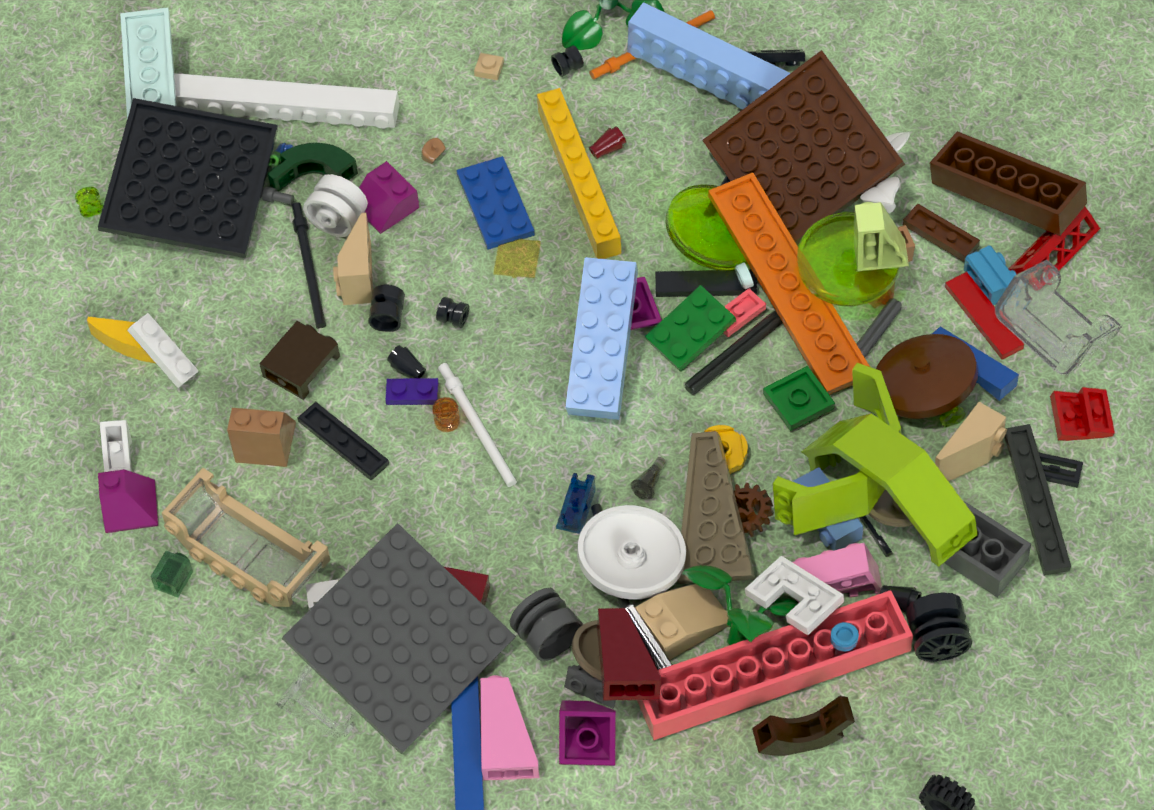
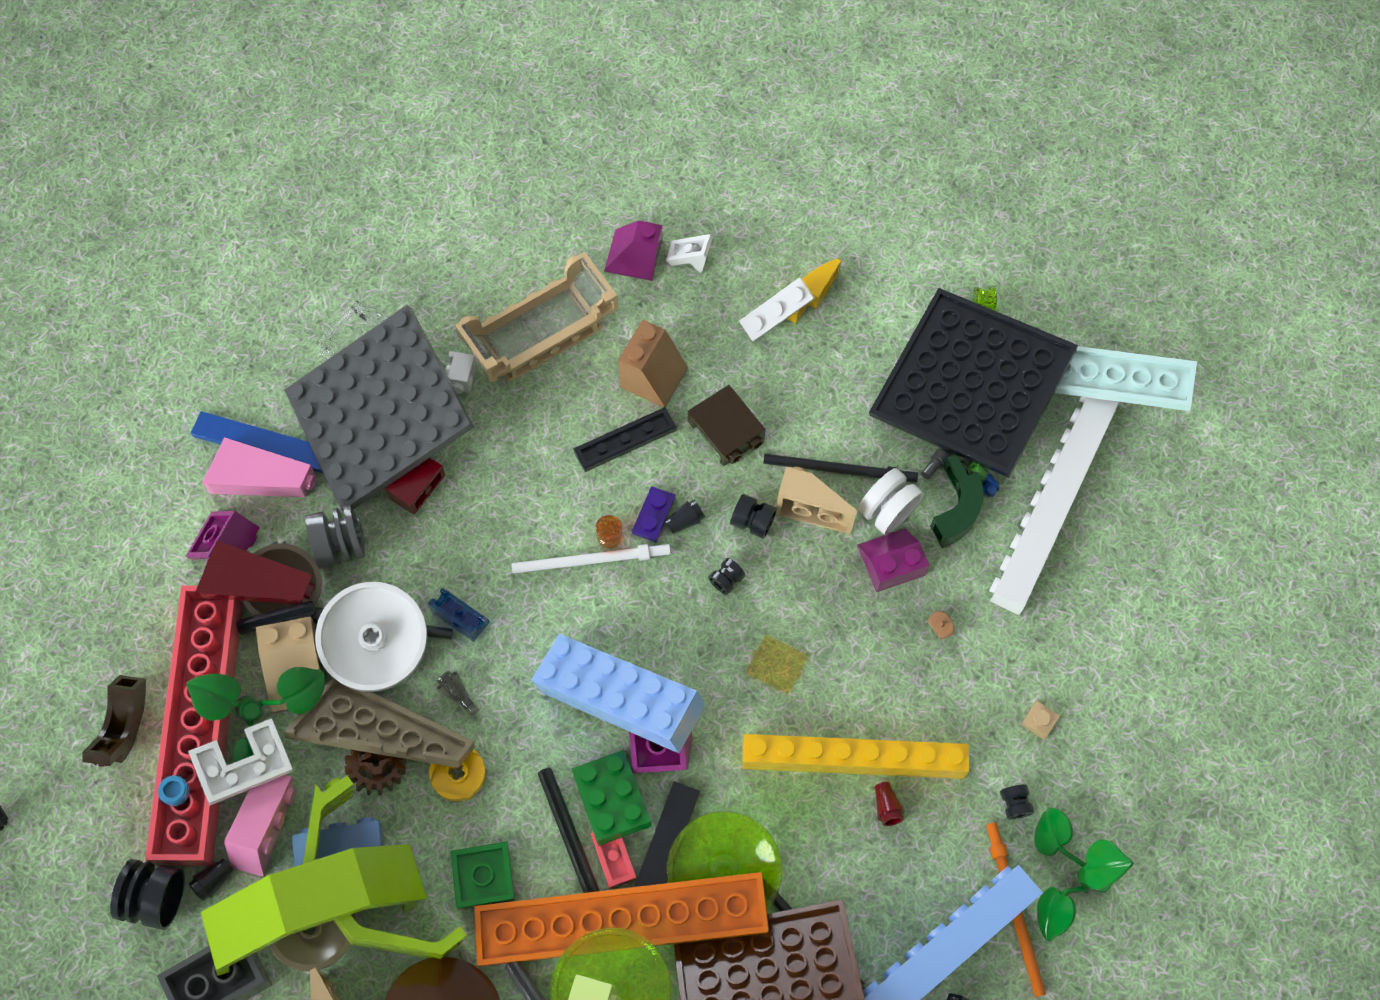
camera: 105 degrees right, 10 degrees up
(172, 573) = (543, 263): clear green brick -> none
(495, 202) = (853, 665): blue plate -> none
(744, 276) = (648, 874): light aqua tile -> none

